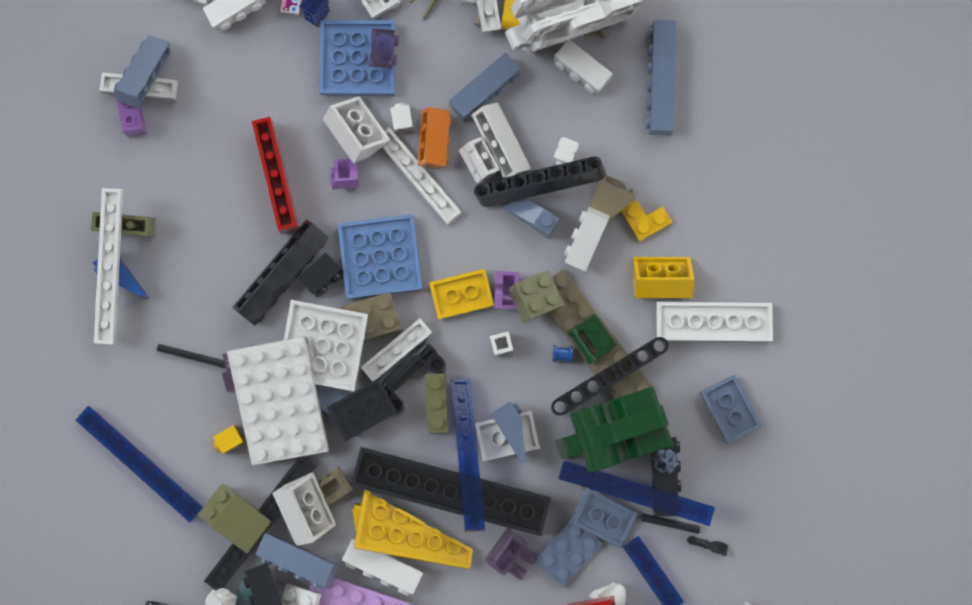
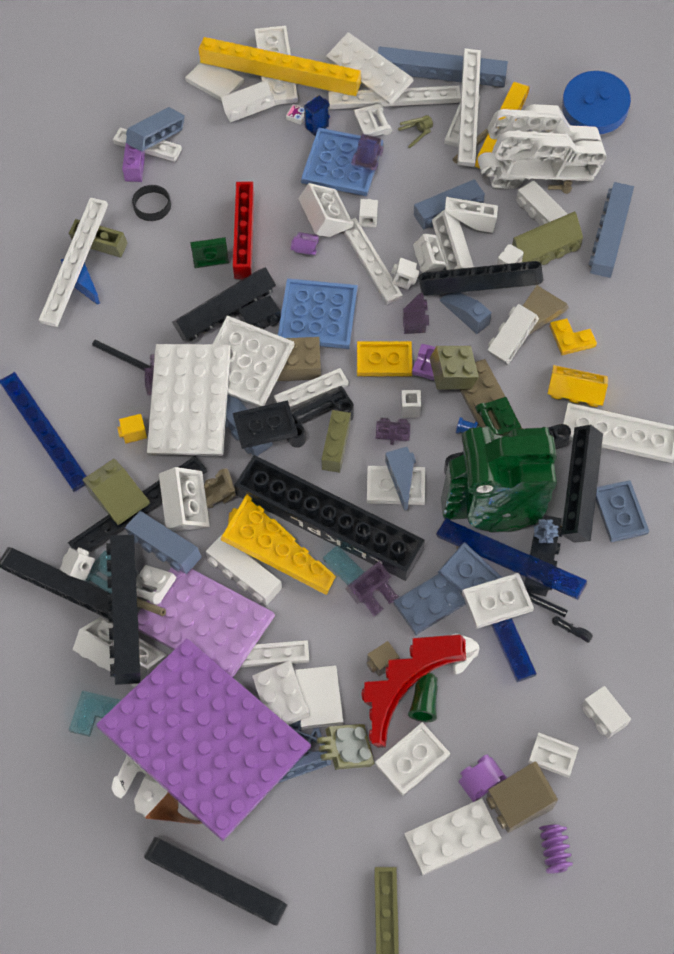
camera: 15 degrees right, 20 degrees down
(160, 142) = (151, 189): none -> black tyre
(248, 215) = (209, 252): none -> dark green plate
(434, 138) = (393, 231): orange brick -> none
(458, 188) = (404, 273): none -> white brick
(467, 455) = (353, 485): clear blue plate -> none
(480, 236) = (414, 316): none -> clear purple slope
(482, 539) = (342, 565): none -> clear light blue plate
(491, 378) = (393, 430): none -> clear purple hips
(512, 98) = (474, 214): none -> white slope
(600, 115) = (550, 240): none -> olive slope
(633, 540) = (497, 600): none -> white plate
(689, 394) = (582, 484): none -> black brick

